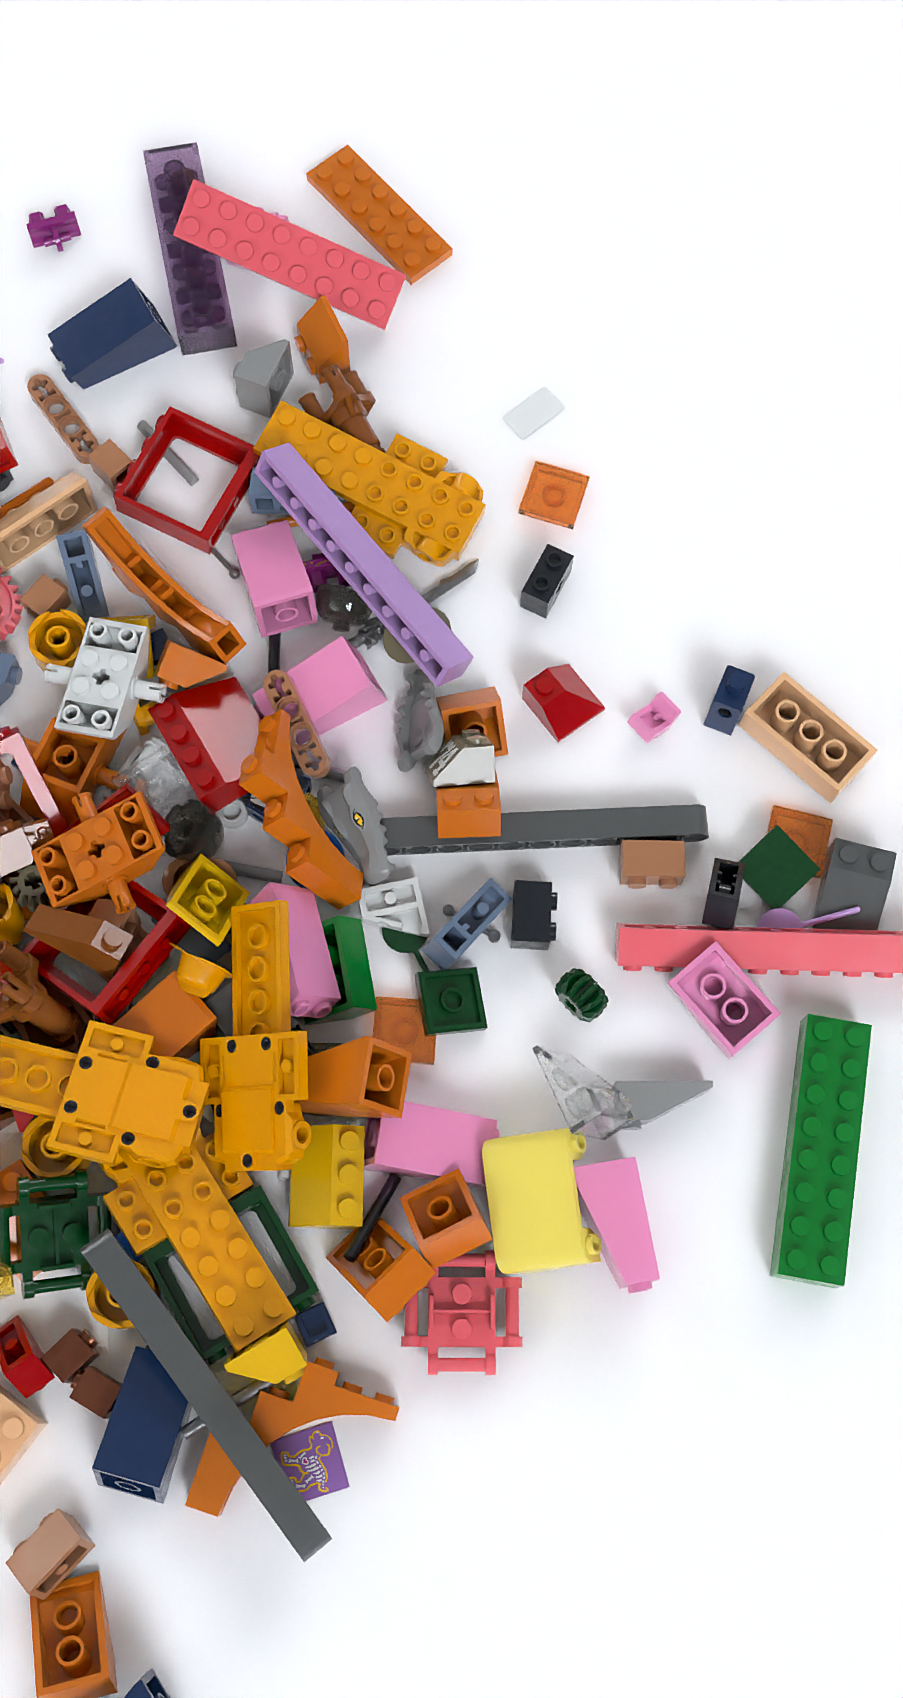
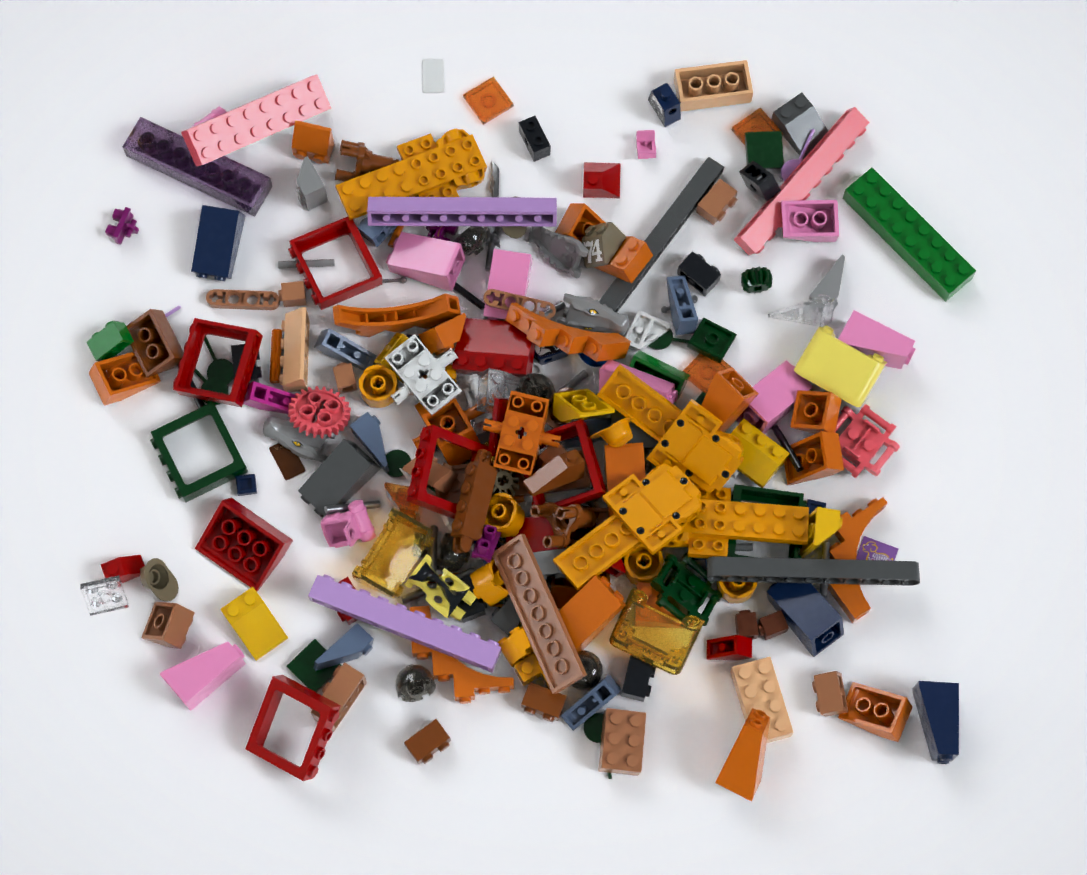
camera: 50 degrees left, 0 degrees up
(379, 214) = (252, 62): orange plate -> none

